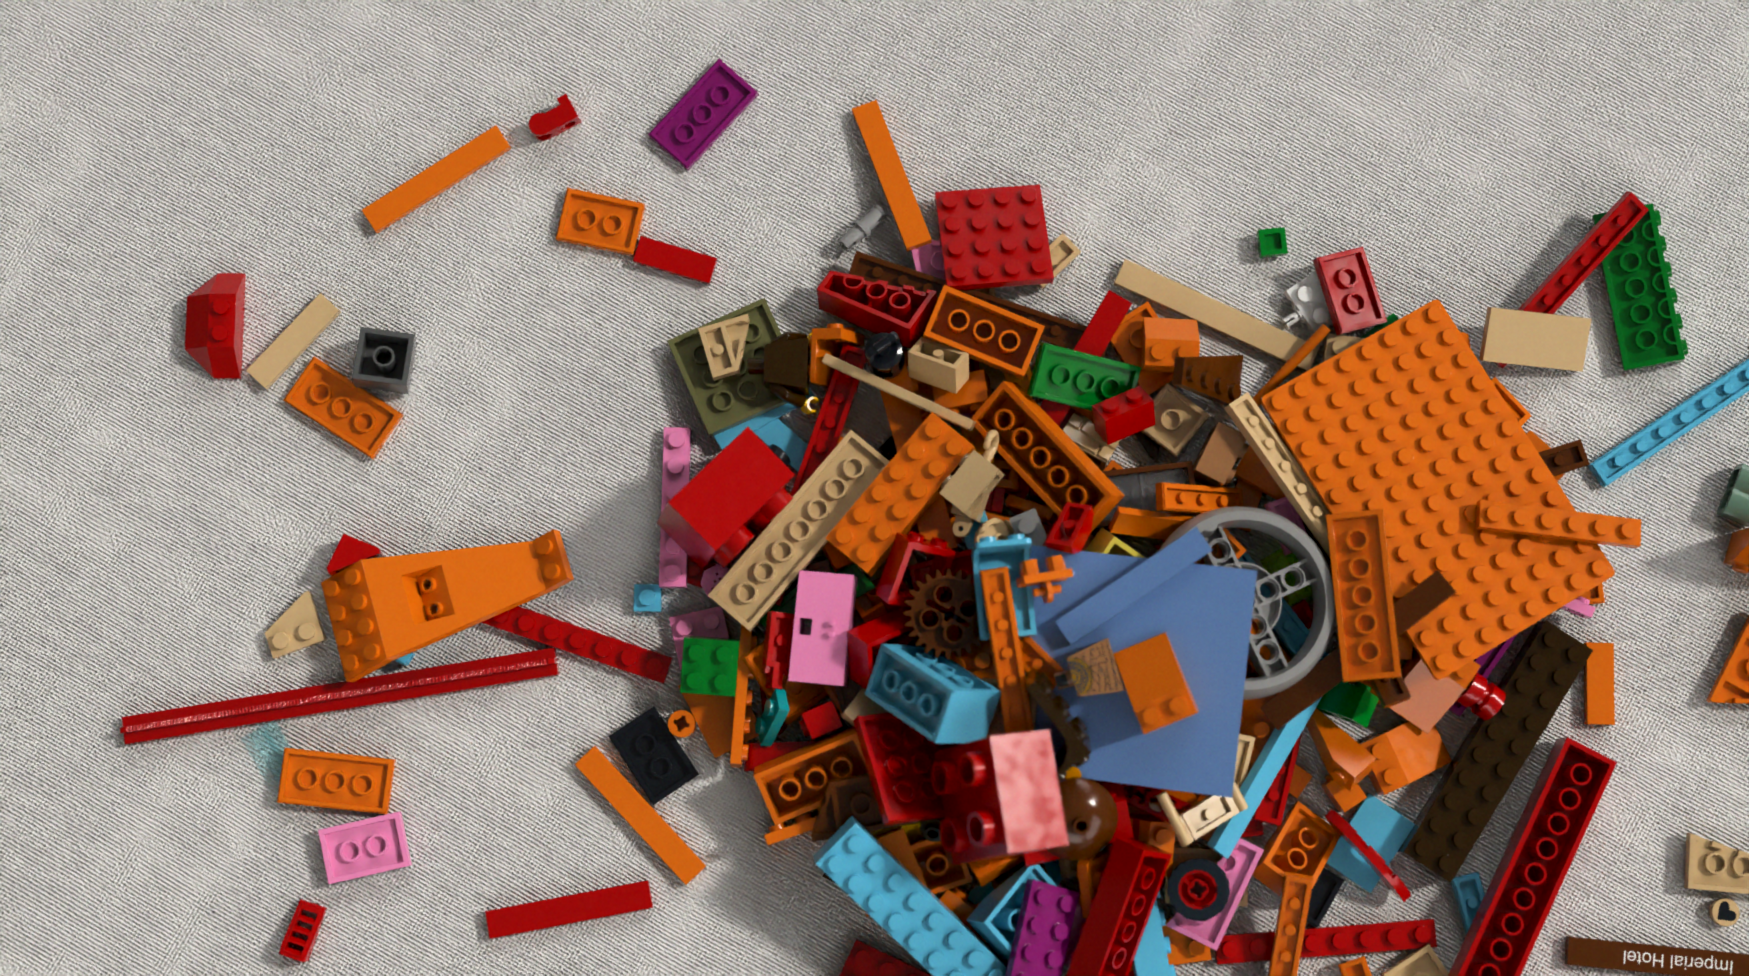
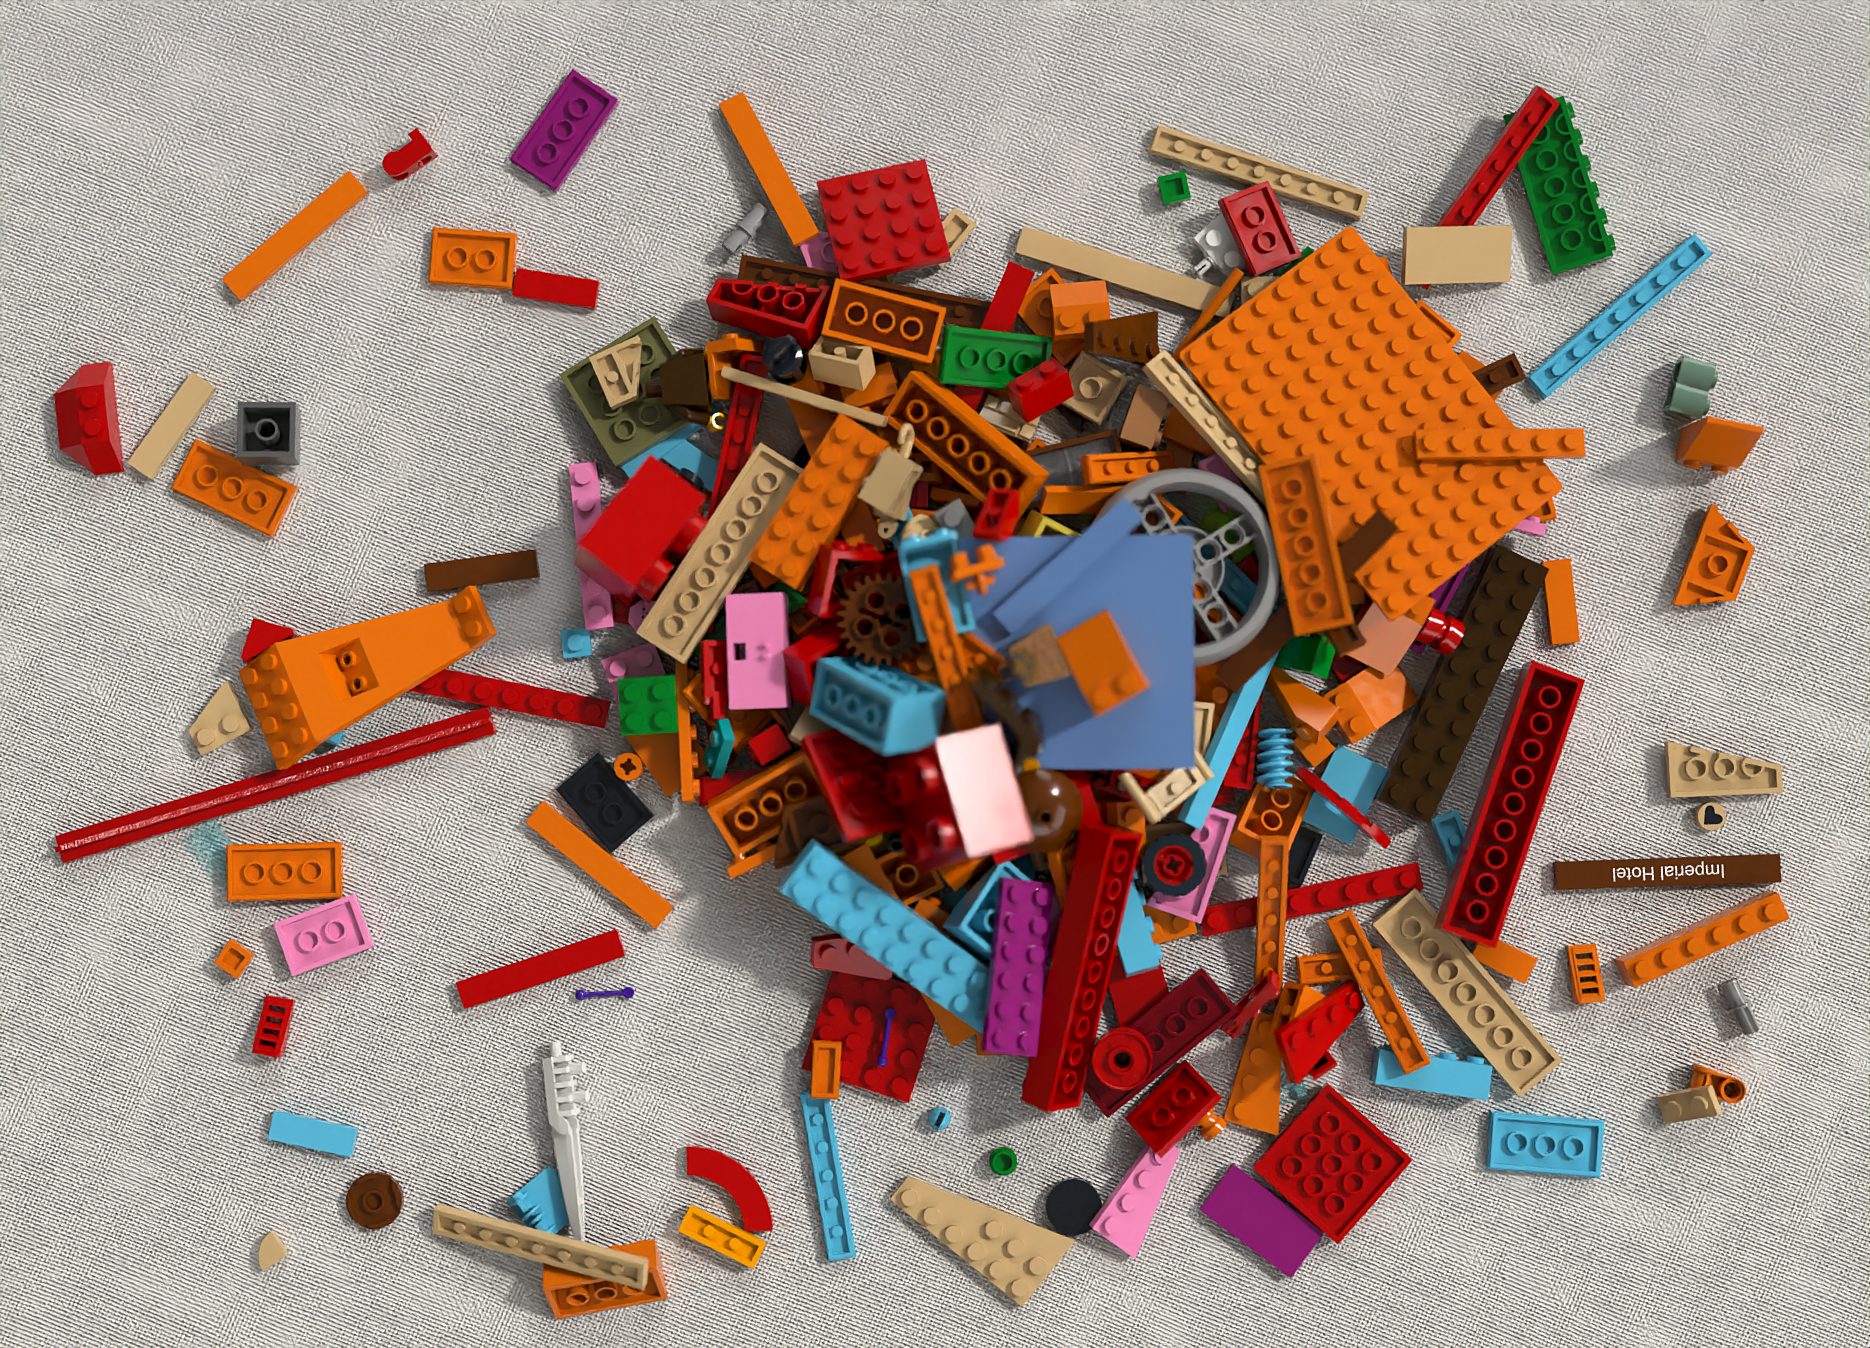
camera: 10 degrees left, 5 degrees up
(275, 859) = (234, 958): none -> orange plate
(567, 516) = (482, 570): none -> reddish brown tile
(650, 943) = (628, 992): none -> dark purple hinge
(866, 935) = (841, 955): none -> red wing
(1306, 798) = (1274, 758): none -> medium azure piece
(1351, 235) = (1255, 170): none -> tan tile
(1384, 719) = (1345, 667): none -> red tile

